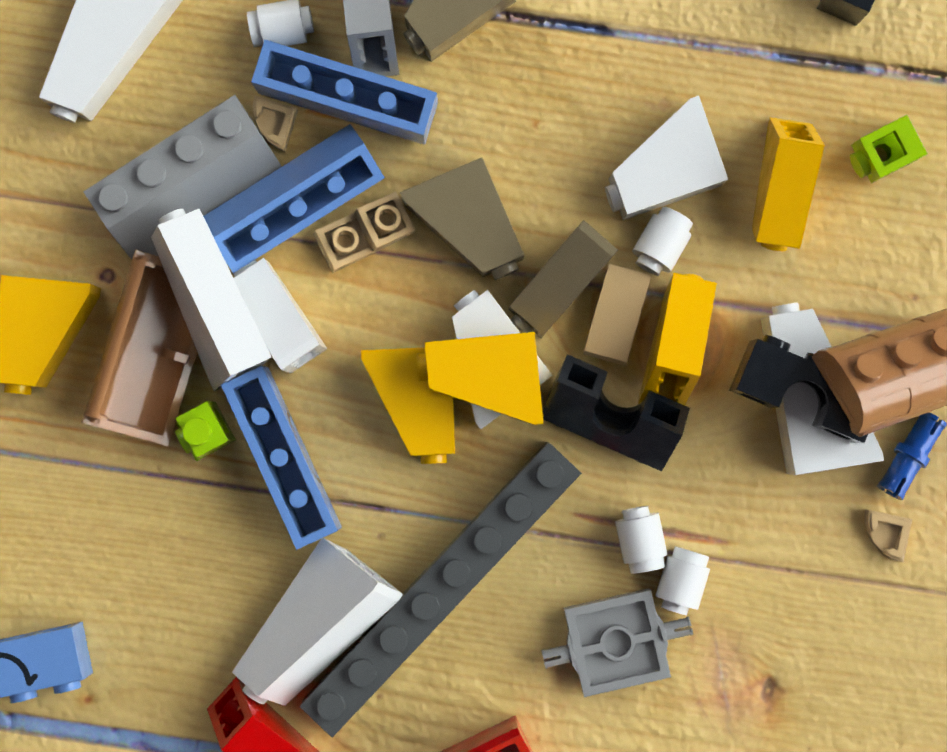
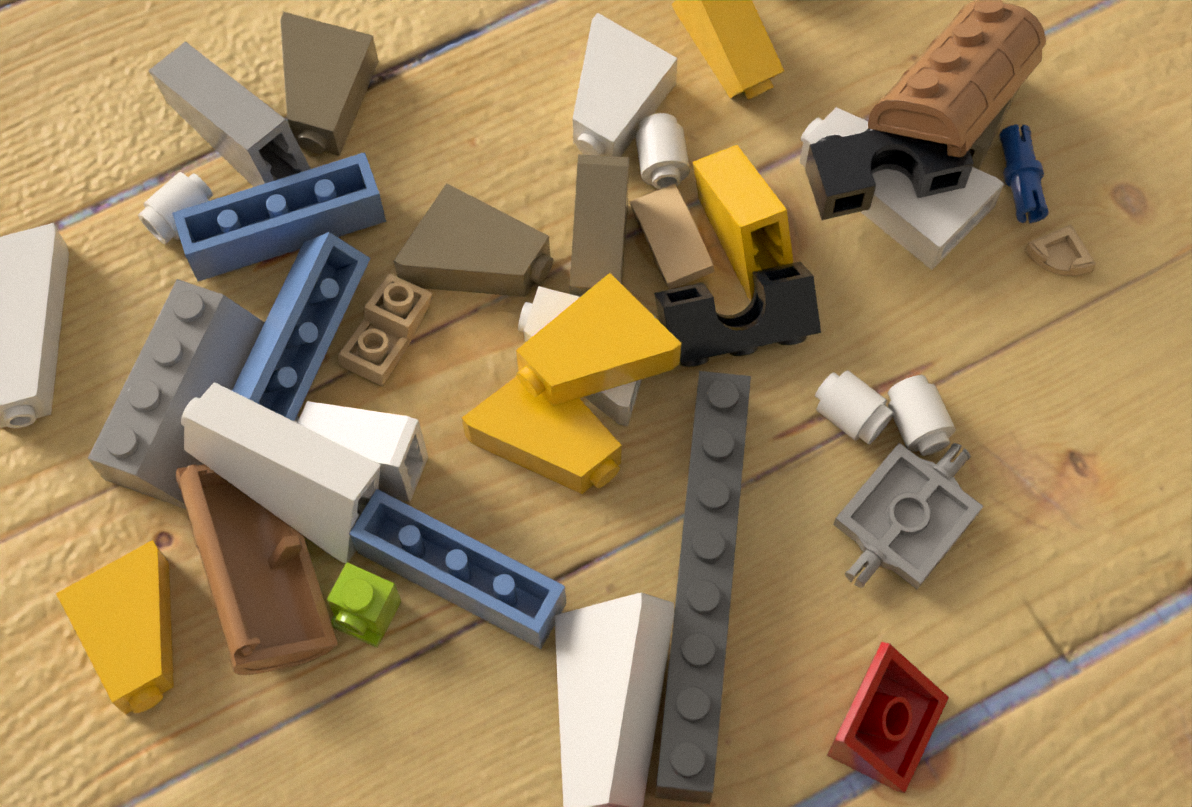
camera: 30 degrees left, 20 degrees down
(274, 121) = (234, 286): tan tile -> none

